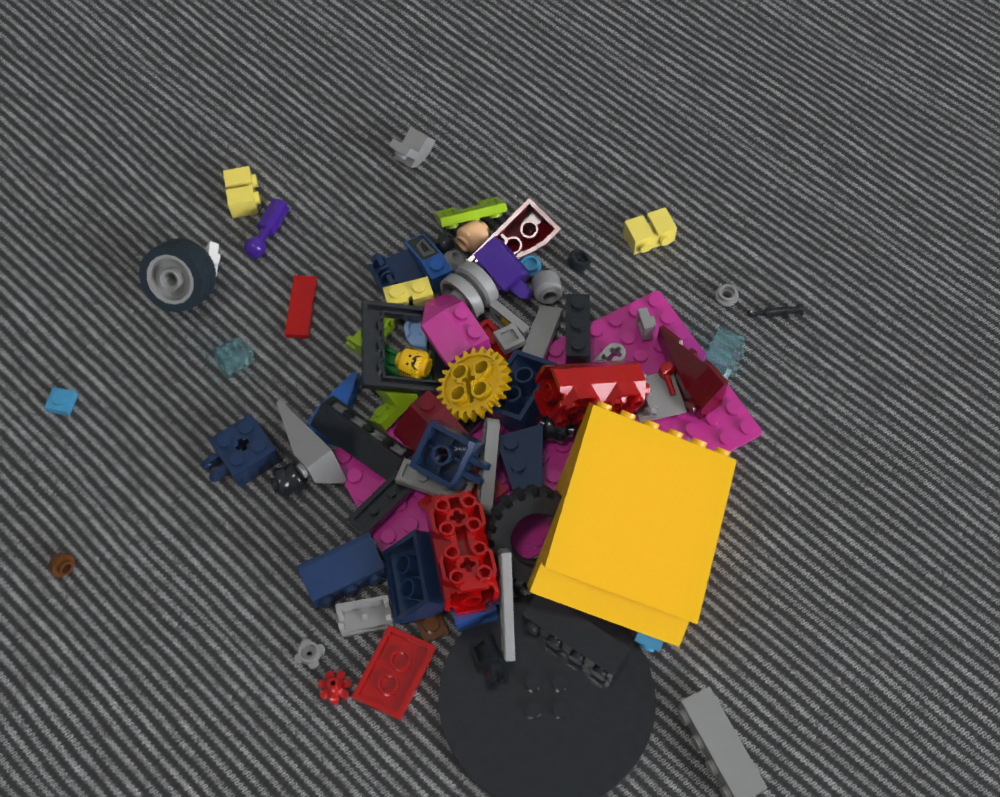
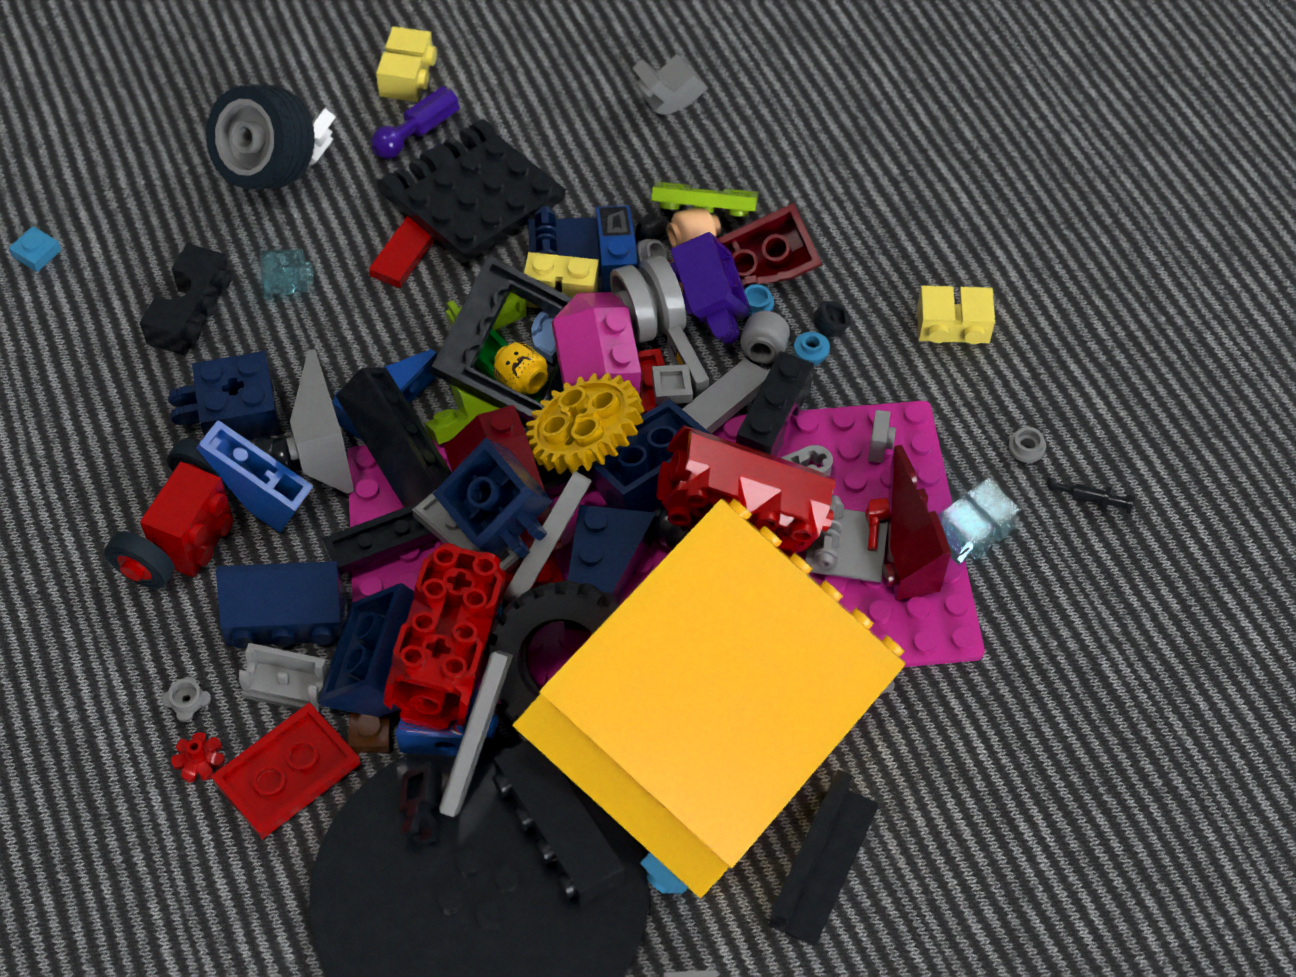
camera: 20 degrees right, 5 degrees down
(180, 415) = (179, 322): none -> black arch
(253, 544) = (178, 525): none -> red brick
(286, 497) = (254, 477): none -> blue slope
(325, 262) = (472, 195): none -> black hinge
(576, 288) = (815, 355): none -> dark azure plate
(733, 593) = (823, 862): none -> black panel

